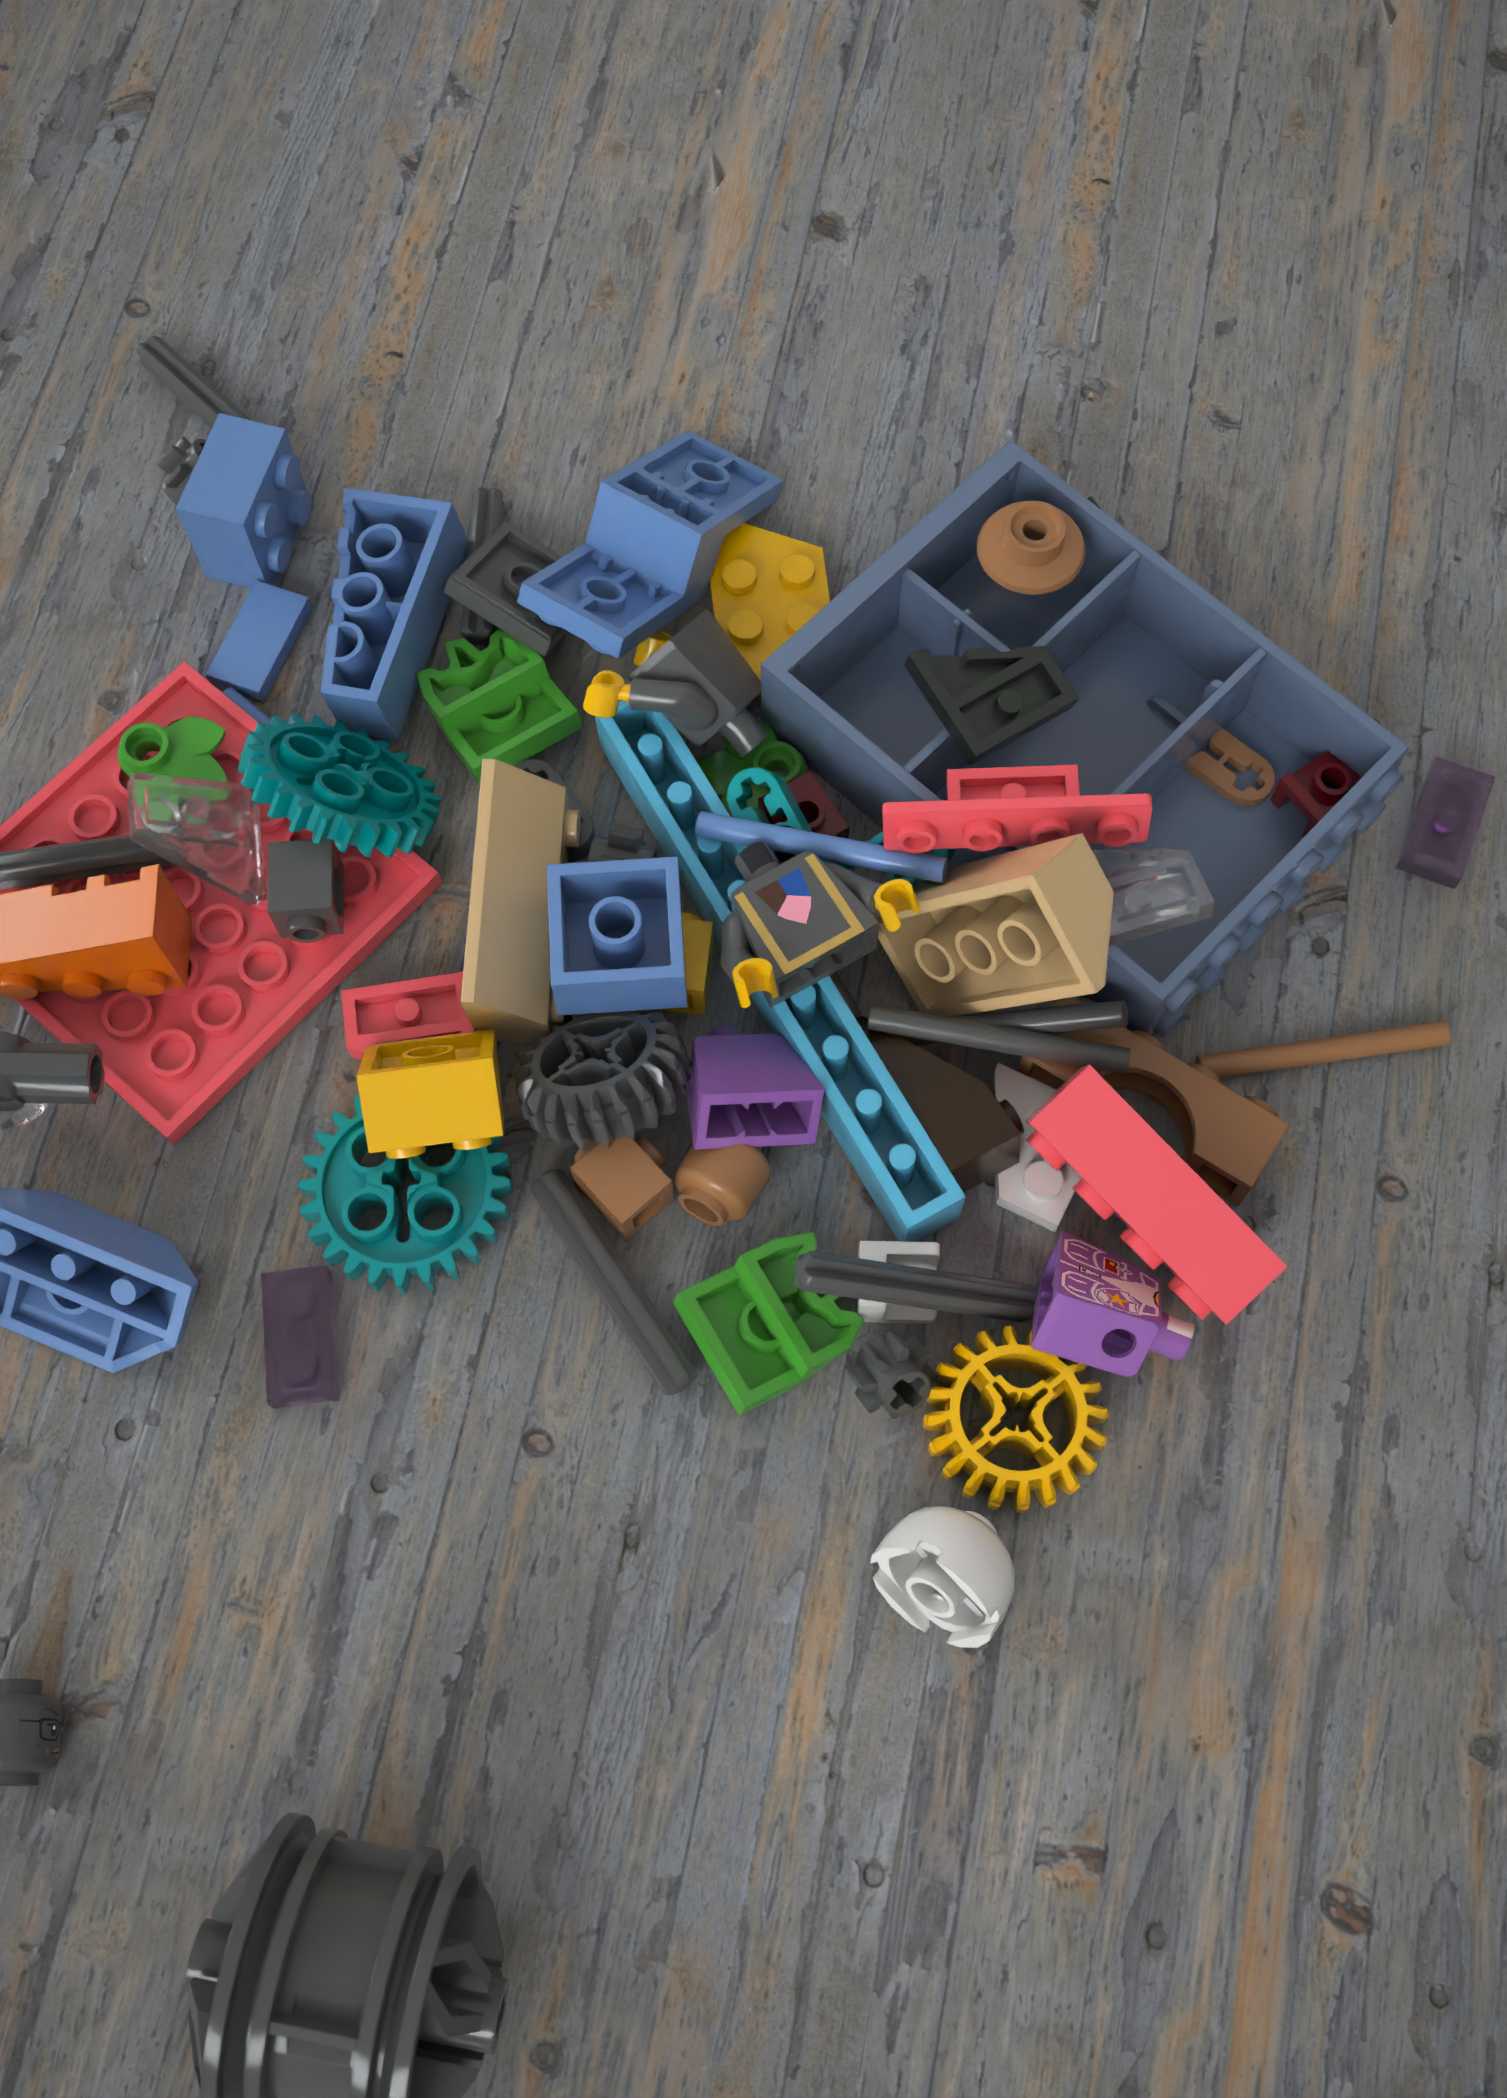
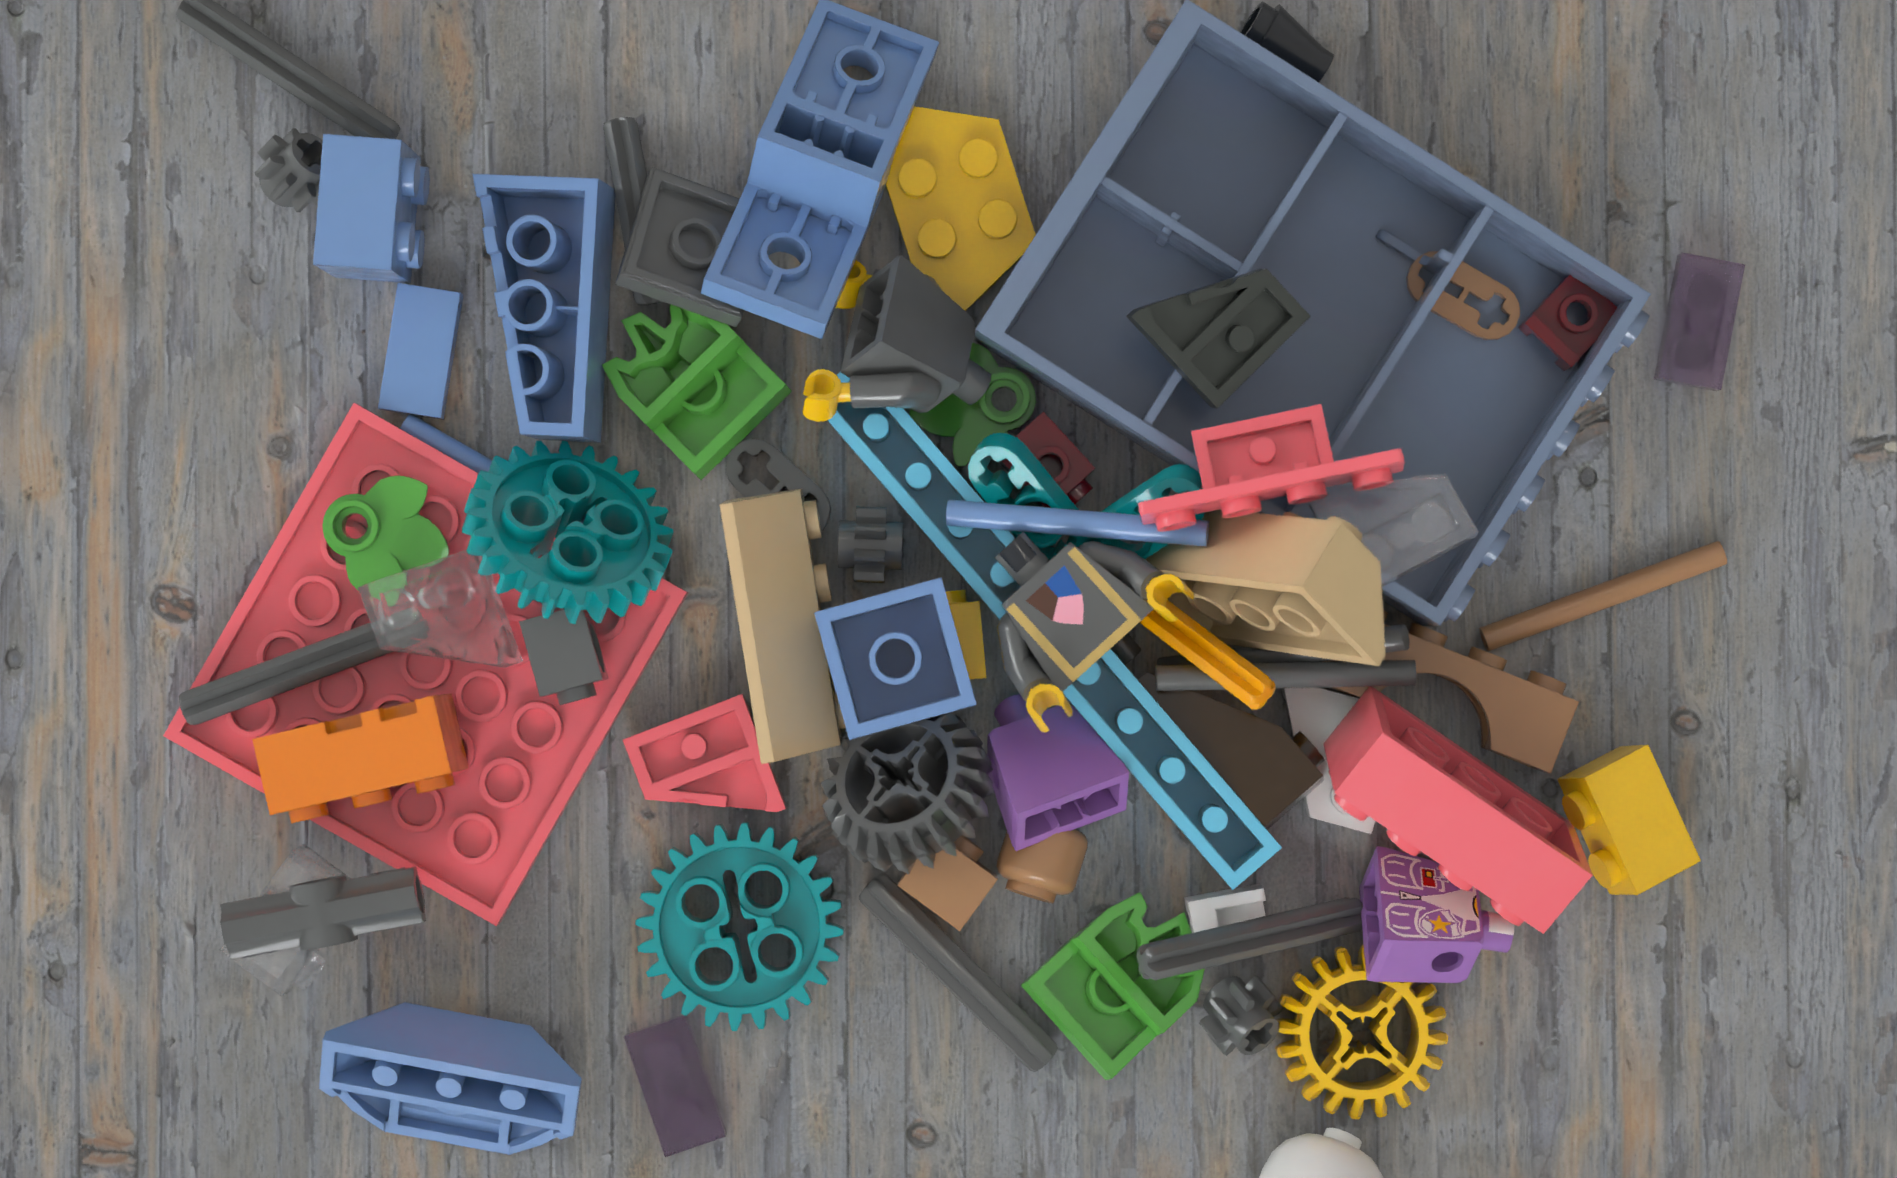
camera: 10 degrees left, 20 degrees up
(431, 1093) = (748, 841): yellow slope -> none
(922, 993) = (1212, 656): none -> light orange axle
(1028, 564) = (1222, 156): medium nougat piece -> none
(1330, 1255) = (1627, 820): none -> yellow brick

